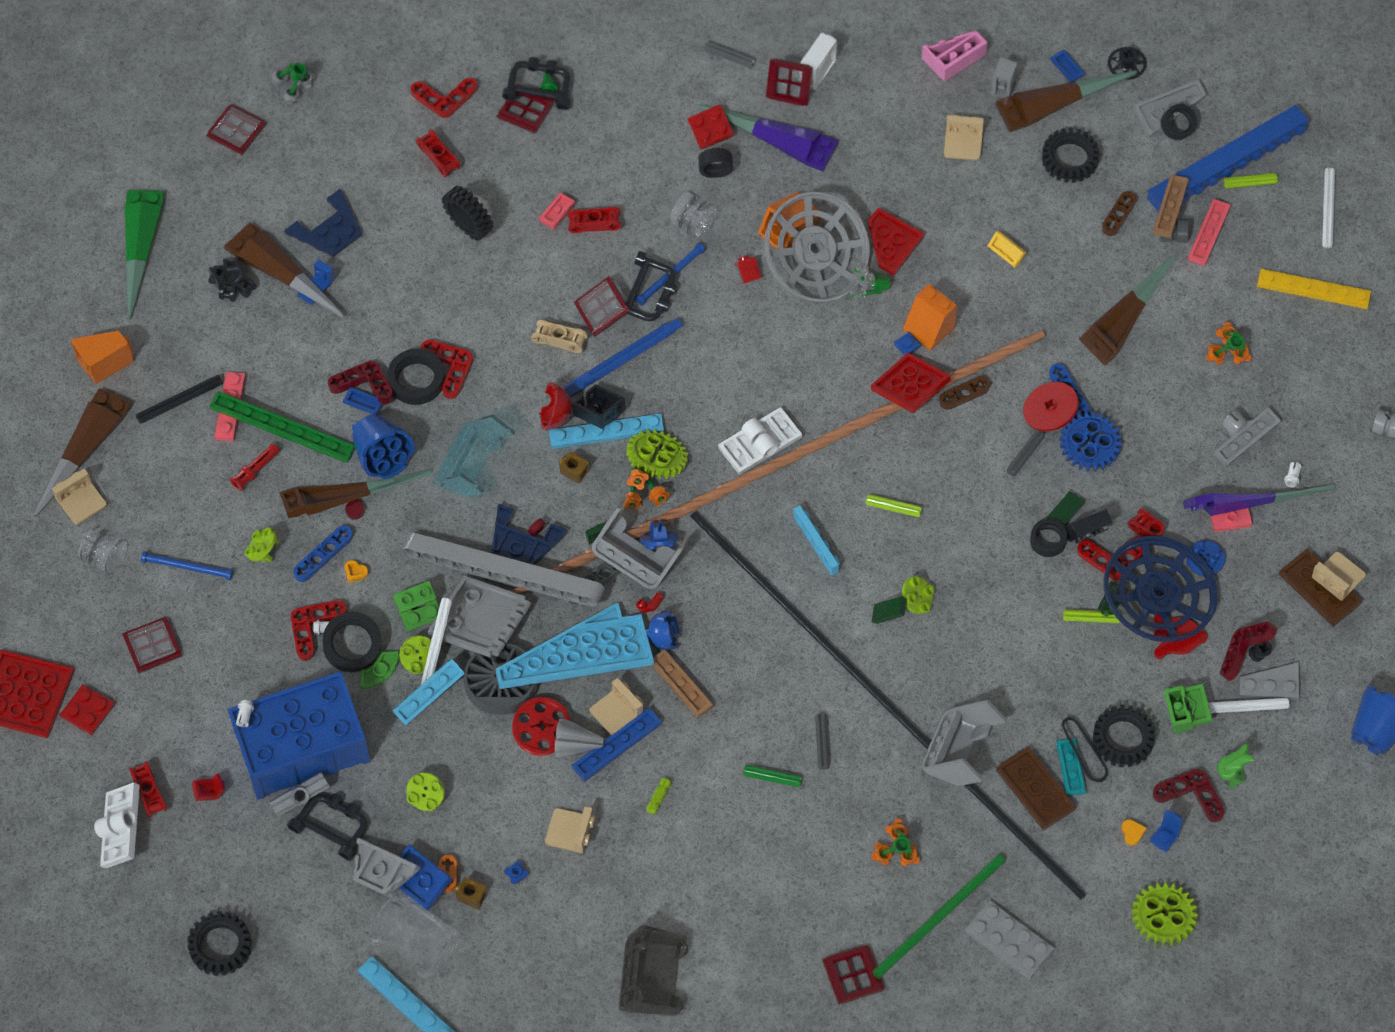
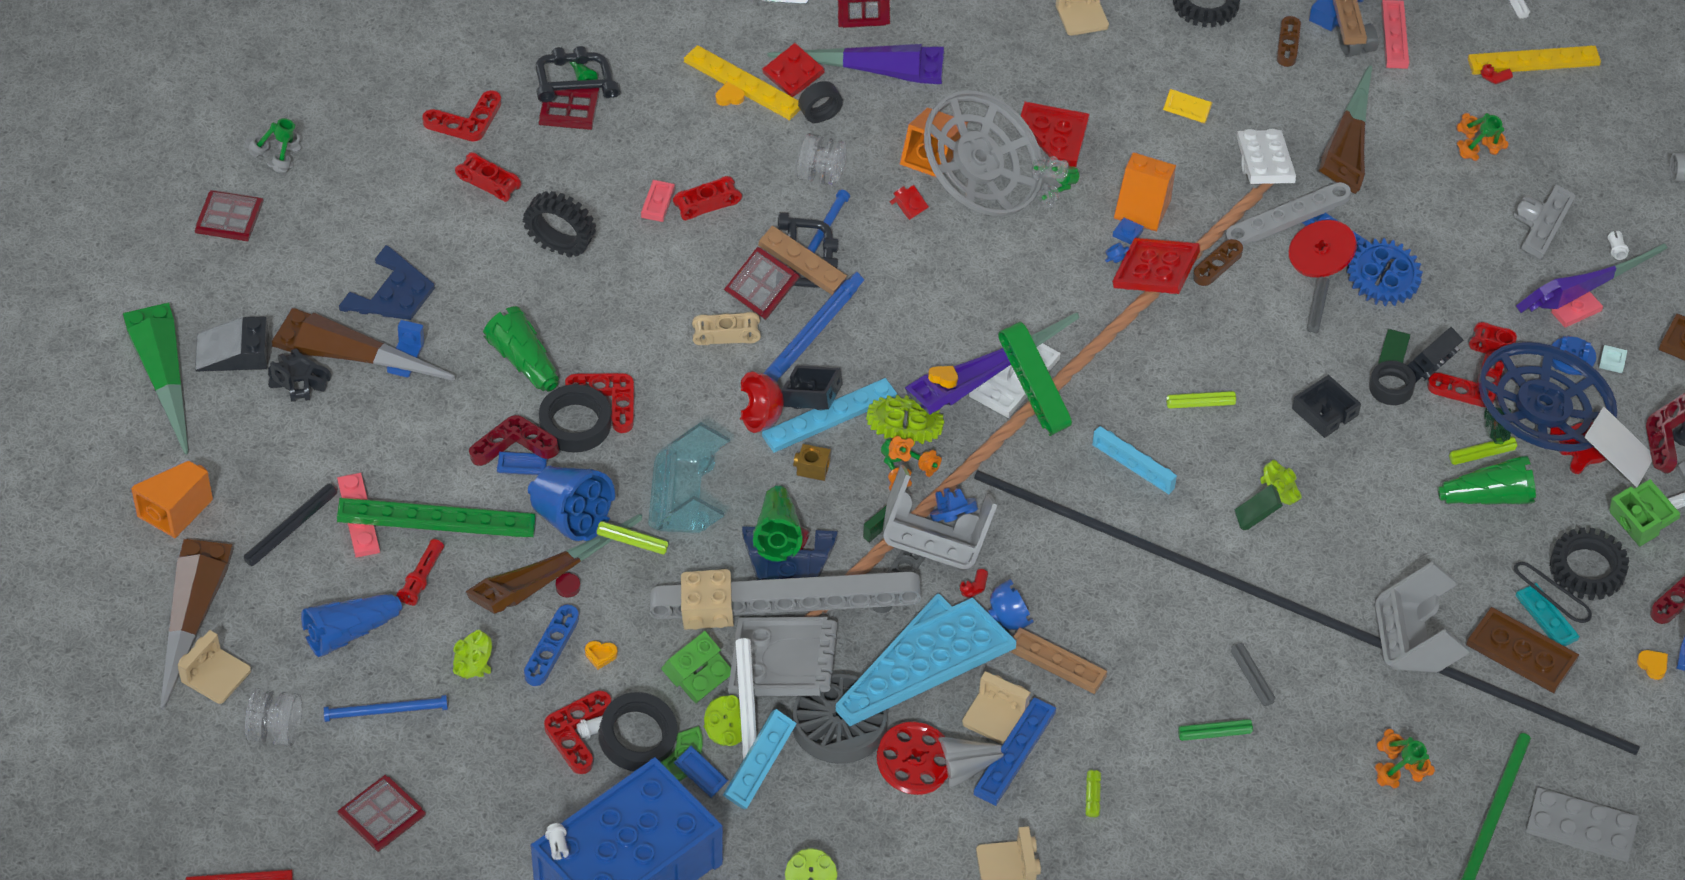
camera: 25 degrees left, 10 degrees down
(179, 490) = (340, 622): none -> blue cone
(196, 241) = (234, 346): none -> black slope
(384, 687) = (701, 771): none -> blue tile
(398, 302) = (517, 341): none -> green cone
(415, 487) = (632, 537): none -> lime axle
(444, 554) = (706, 599): none -> tan bracket
(518, 513) = (777, 526): none -> green cone
(640, 296) = (802, 260): none -> medium nougat plate
(652, 133) = (729, 94): none -> light orange tile
(667, 124) = (752, 86): none -> yellow plate
(697, 428) = (943, 375): none -> light orange tile
(702, 436) = (973, 373): none -> dark purple plate
(765, 452) = (1034, 378): none -> green beam
(887, 361) = (1116, 252): none -> blue plate
(982, 534) = (1322, 397): none -> black piece
(1039, 369) = (1290, 214): none -> light grey plate
(1044, 313) = (1265, 157): none -> white plate
(1084, 649) = (1492, 485): none -> green cone
(1193, 649) = (1619, 446): none -> white sticker
(1235, 571) = (1613, 359): none -> light aqua plate
(1271, 294) = (1495, 77): none -> red arm

